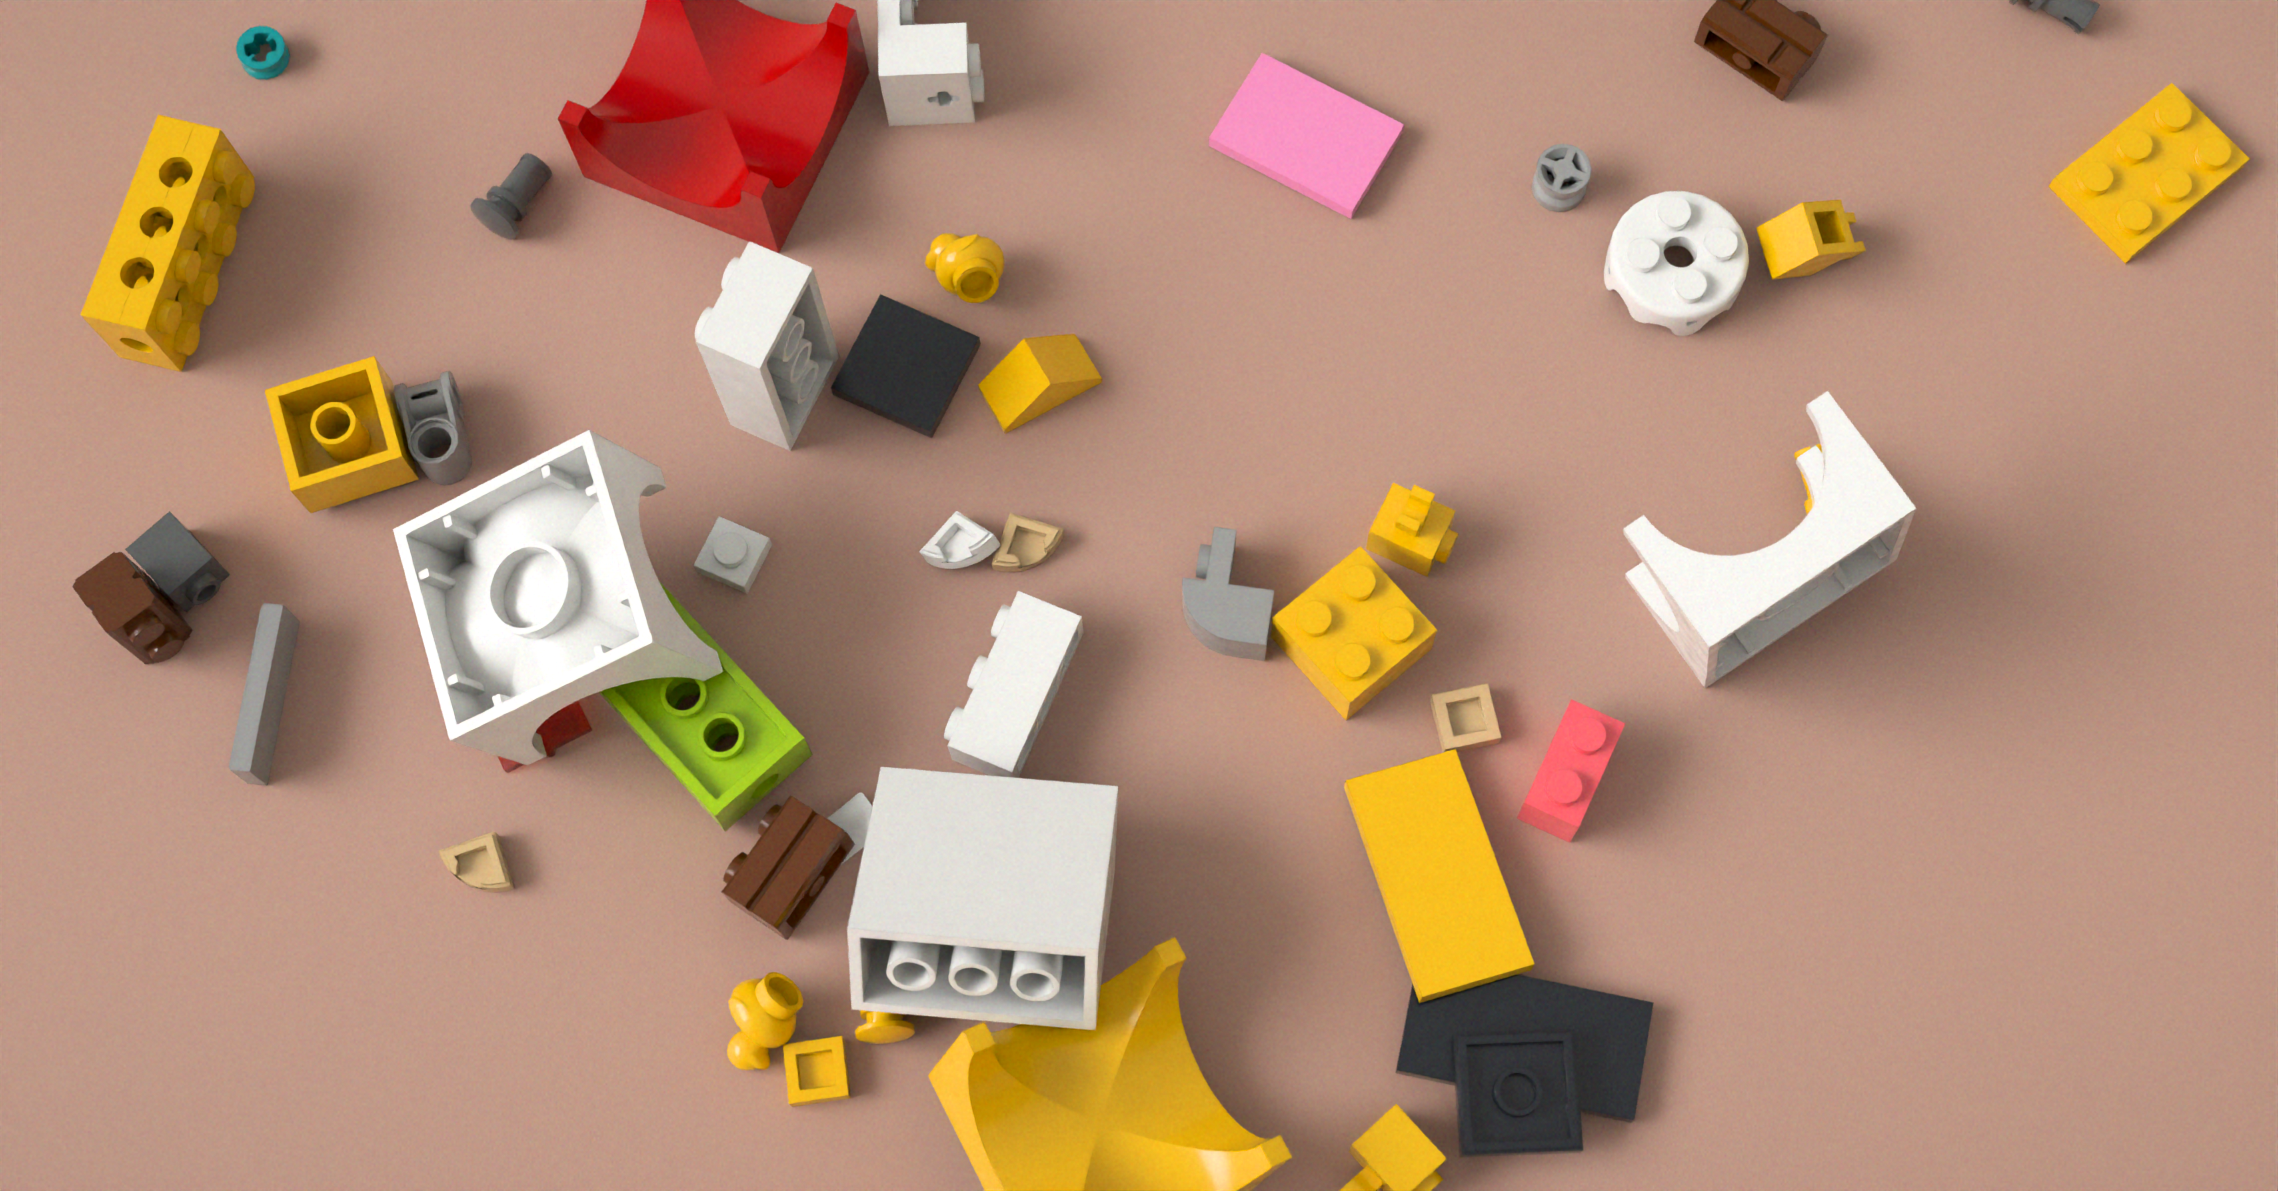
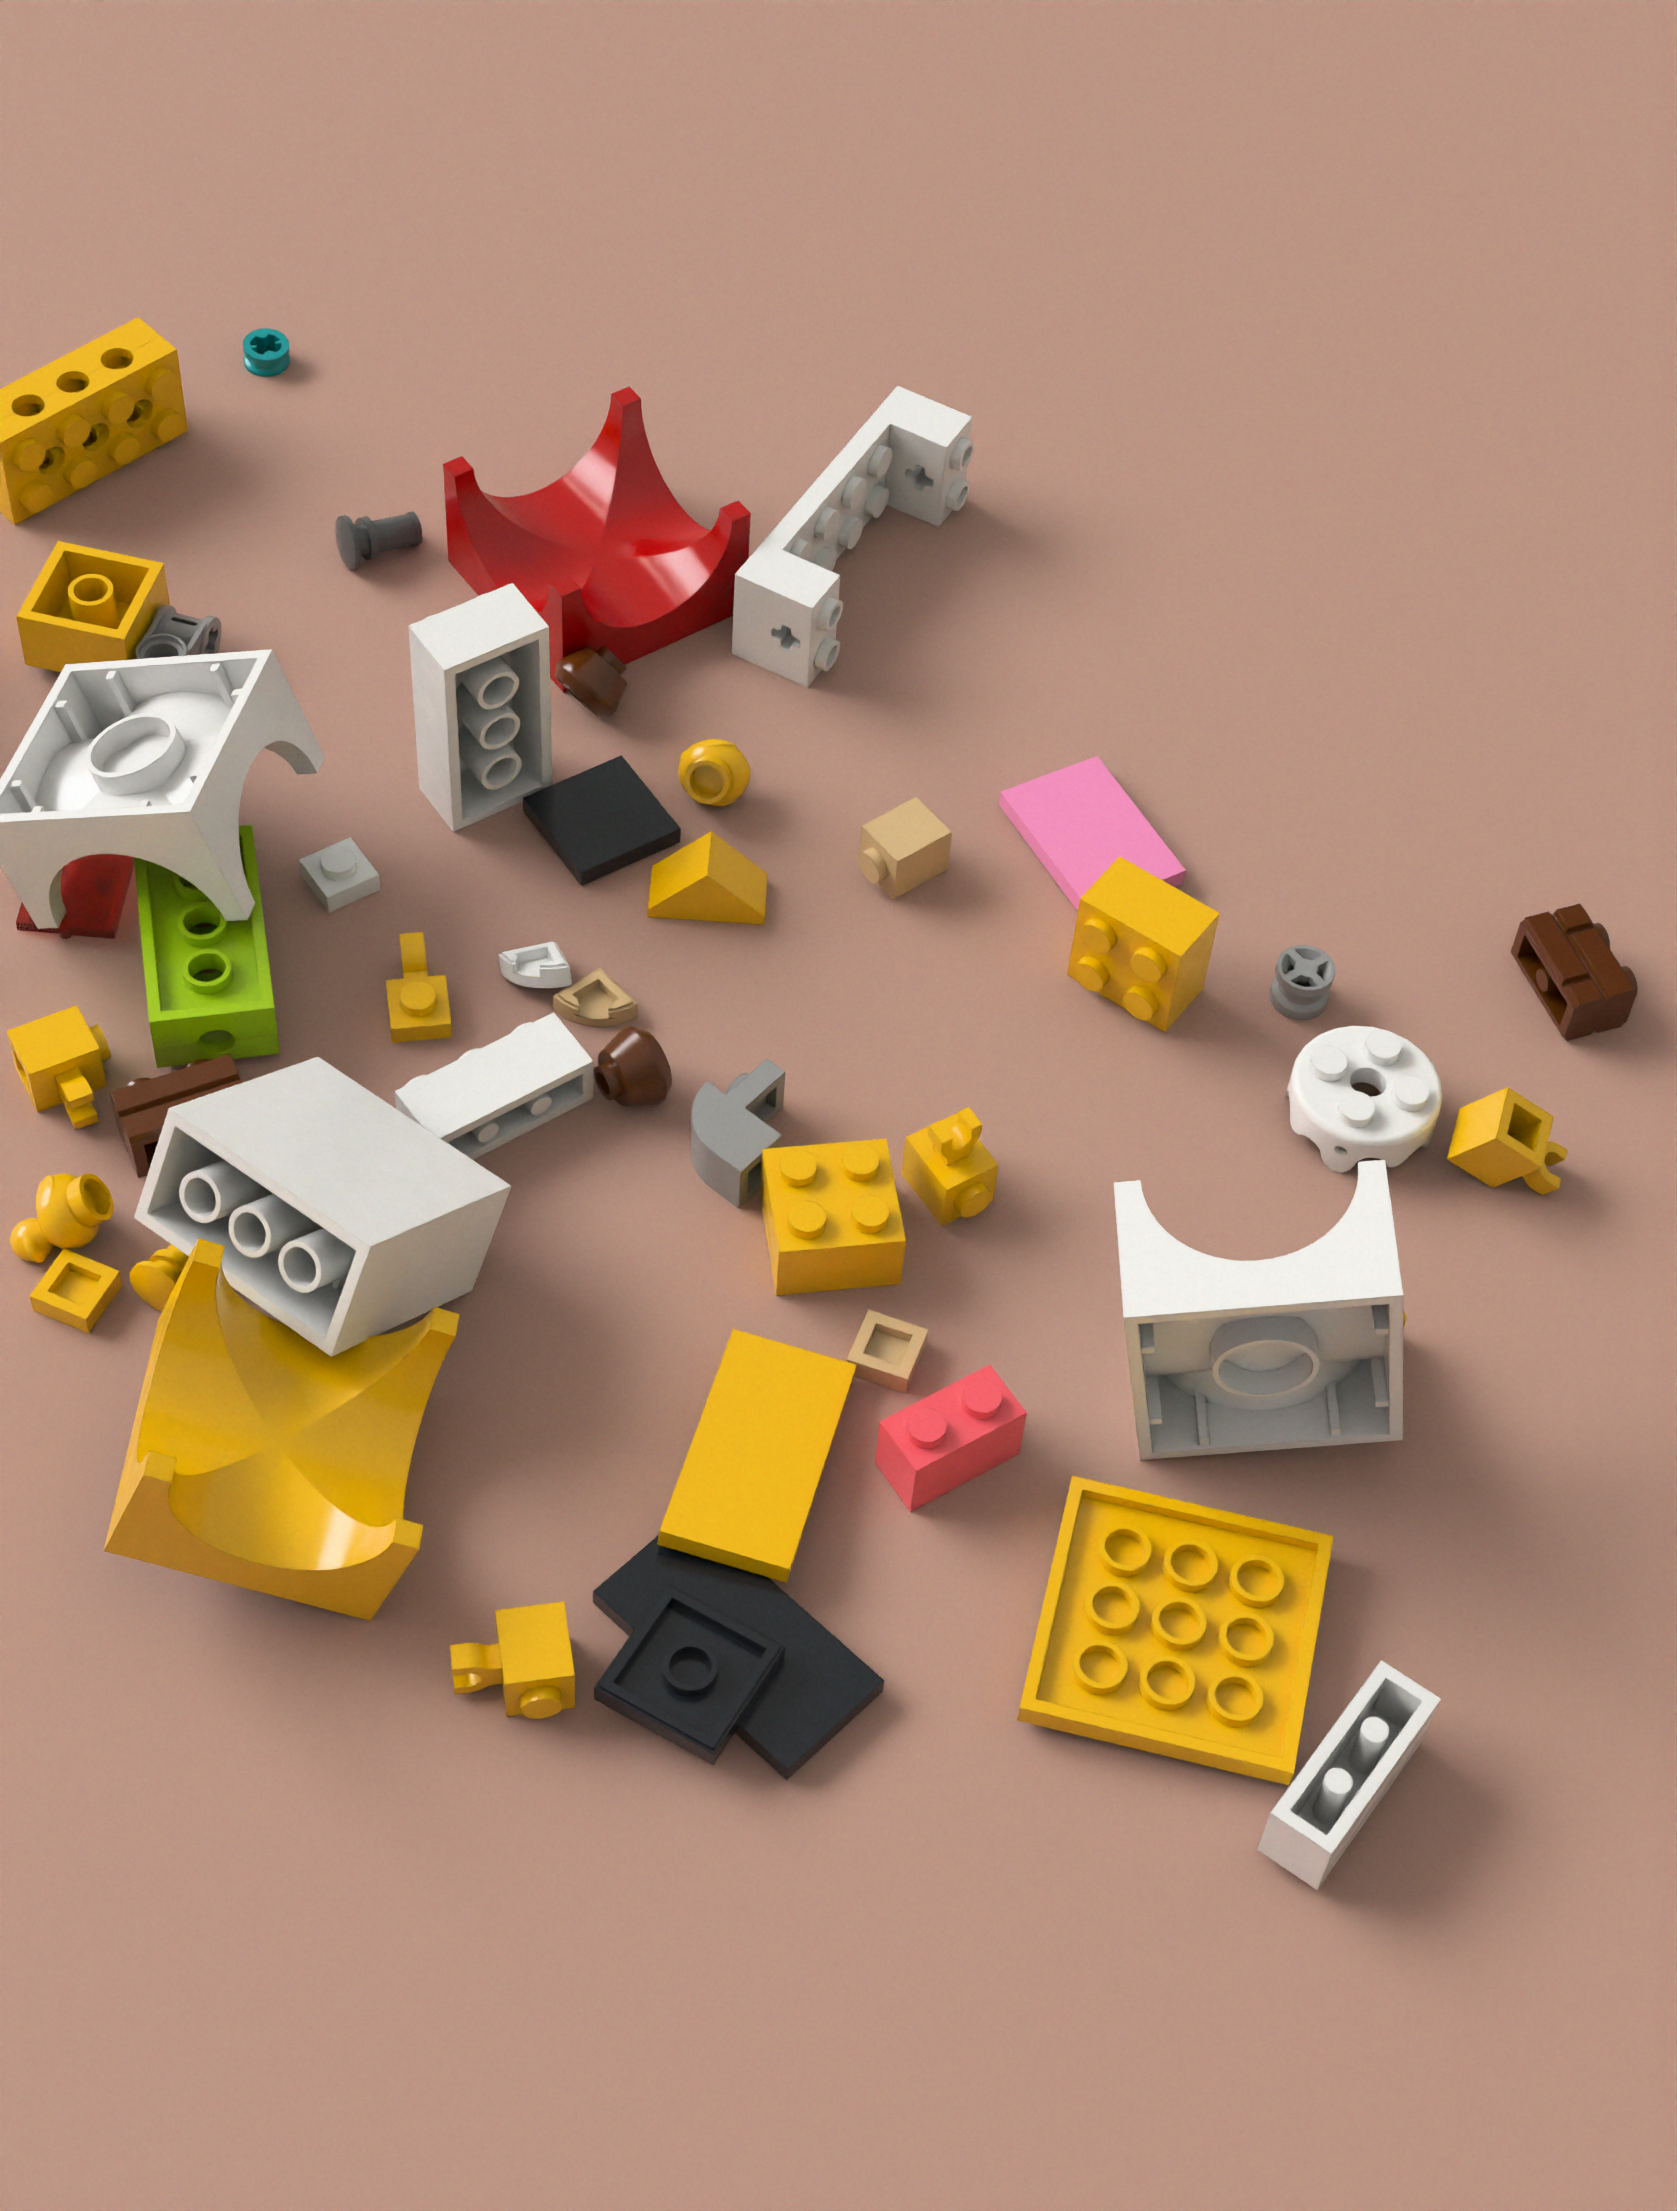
camera: 25 degrees right, 20 degrees down
(651, 881) = (61, 1063): none -> yellow brick
(809, 236) = (593, 679): none -> reddish brown cone
(886, 636) = (417, 1001): none -> yellow plate
(1108, 595) = (633, 1069): none -> reddish brown cone
(1172, 245) = (904, 848): none -> tan brick
(1430, 230) = (1142, 943): none -> yellow brick
(1830, 820) = (1178, 1630): none -> yellow plate
(2030, 868) = (1348, 1774): none -> white brick

